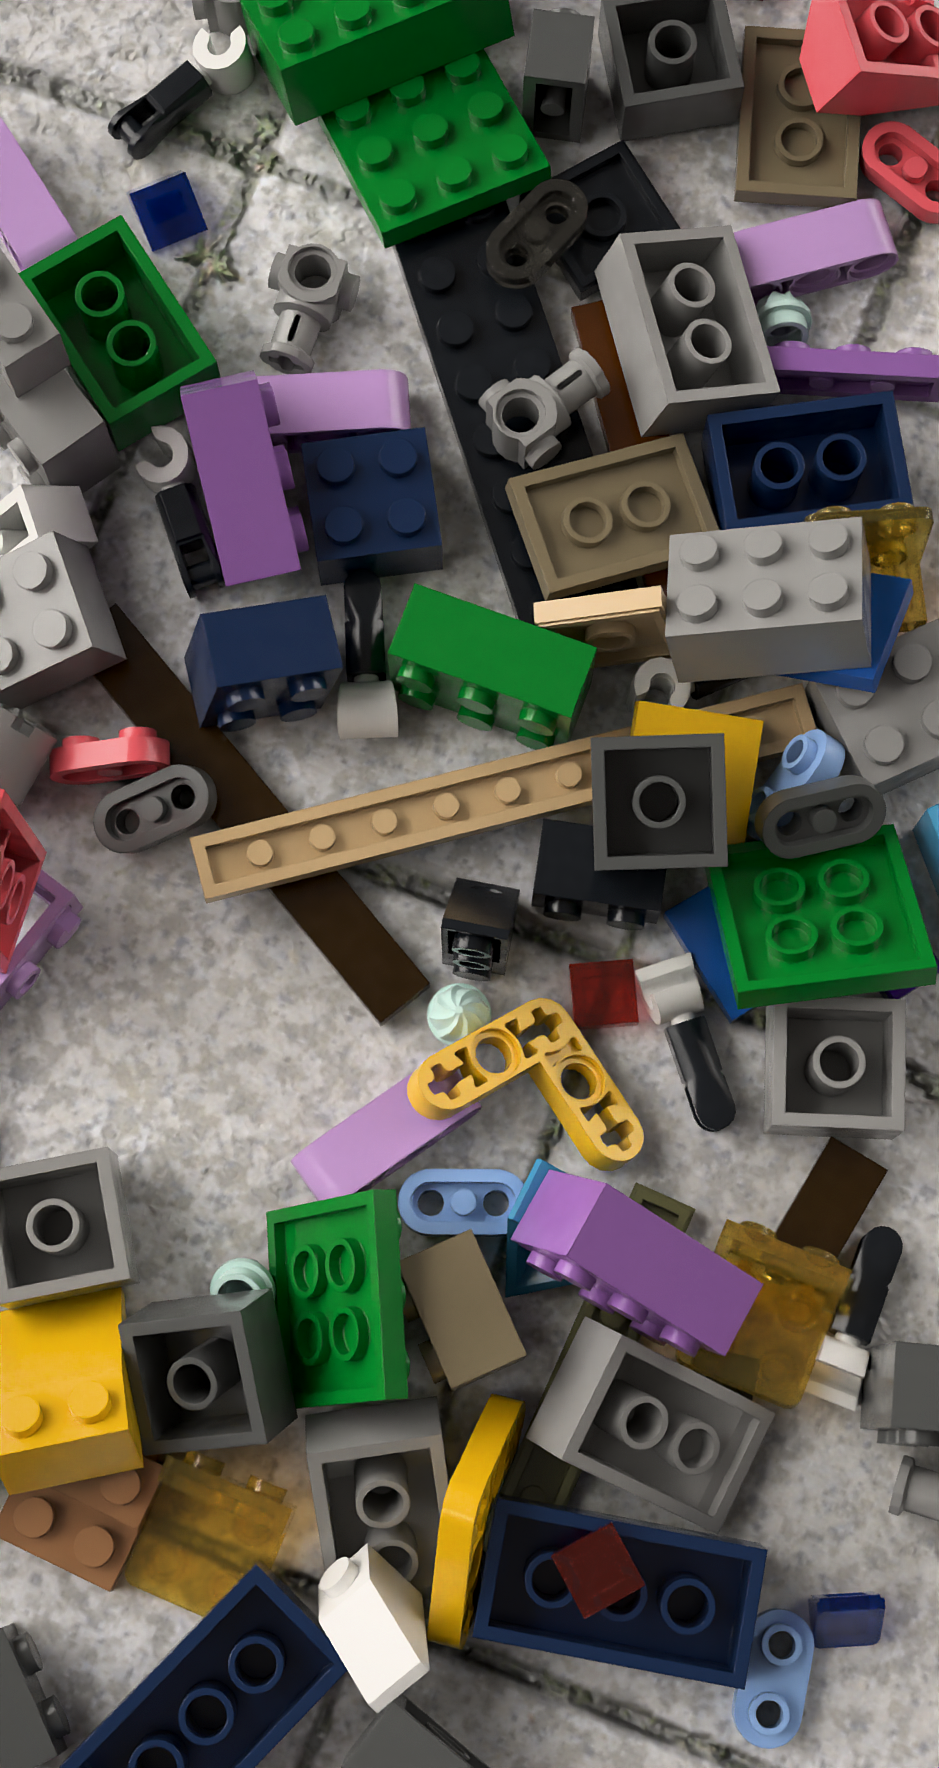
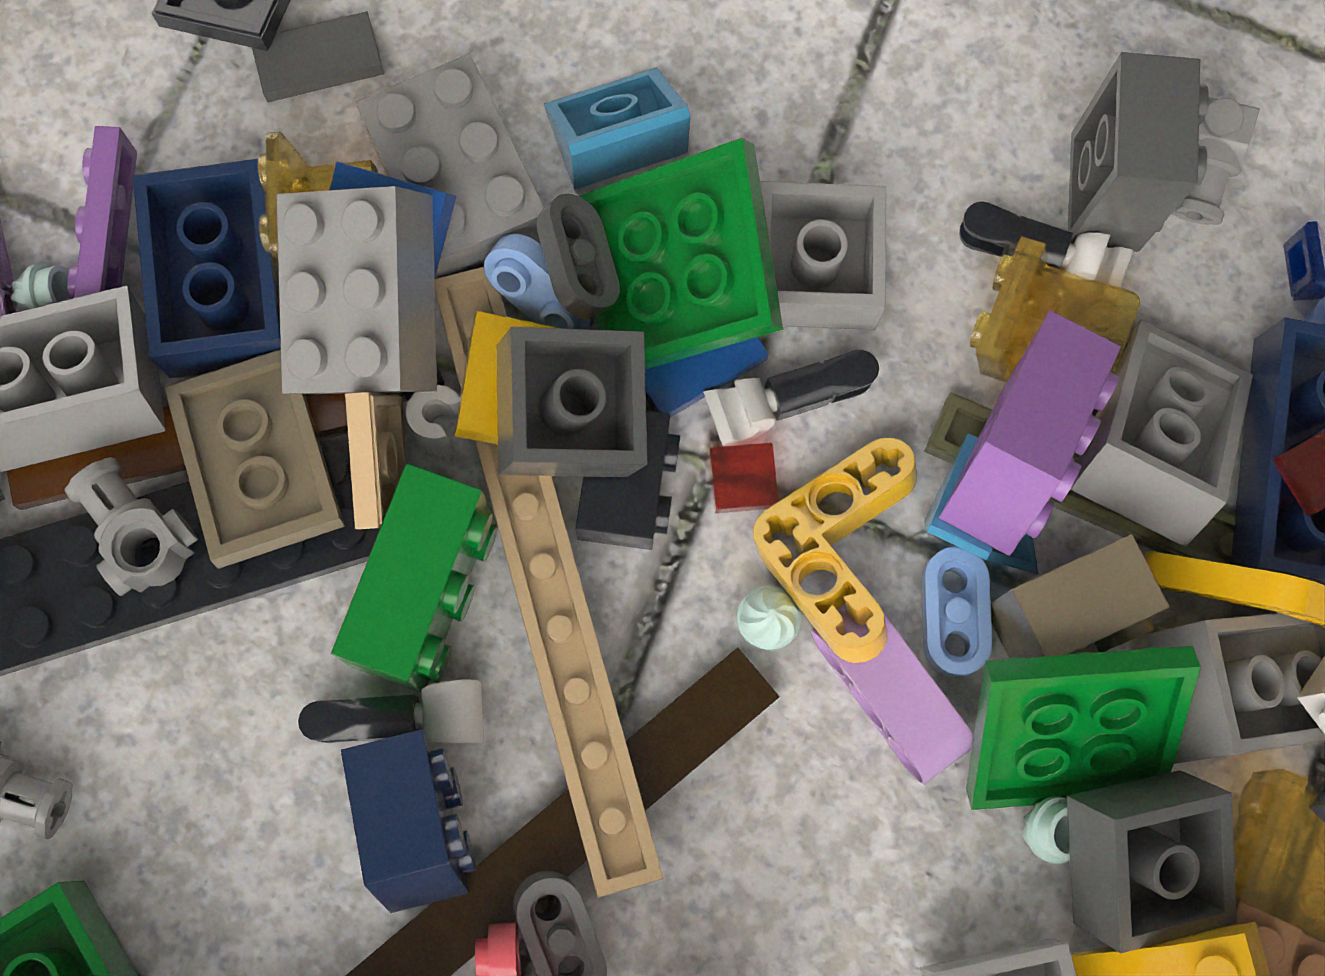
camera: 95 degrees left, 0 degrees up
(182, 510) = (223, 920): black piece -> none
(244, 477) = (195, 845): medium lavender brick -> none
(337, 405) = (116, 771): lavender beam -> none
(373, 505) = (226, 711): dark blue brick -> none
(478, 928) = (690, 588): black slope -> none
(831, 1199) = (941, 272): dark brown tile -> none

